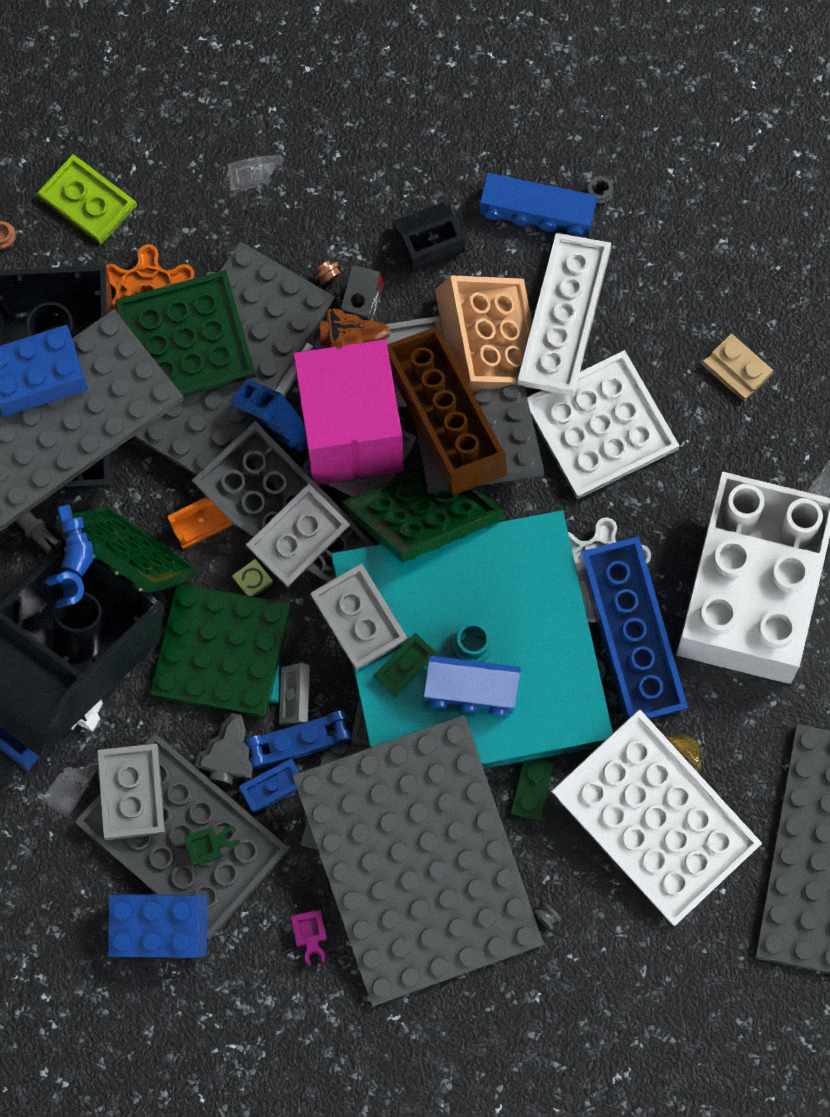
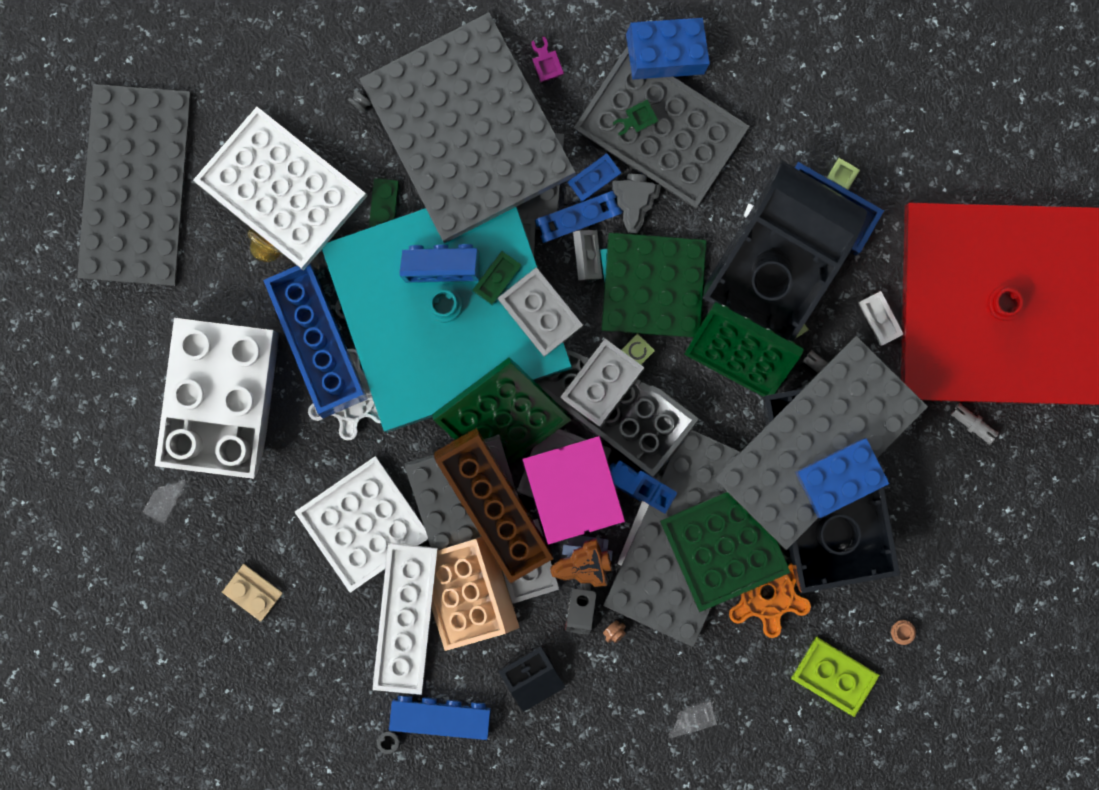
camera: 175 degrees right, 15 degrees up
(69, 787) = (759, 156): clear slope -> none
(76, 559) = (779, 317): blue piece -> none
(131, 792) = (707, 153): light grey plate -> none
(197, 522) = (692, 390): orange hinge -> none

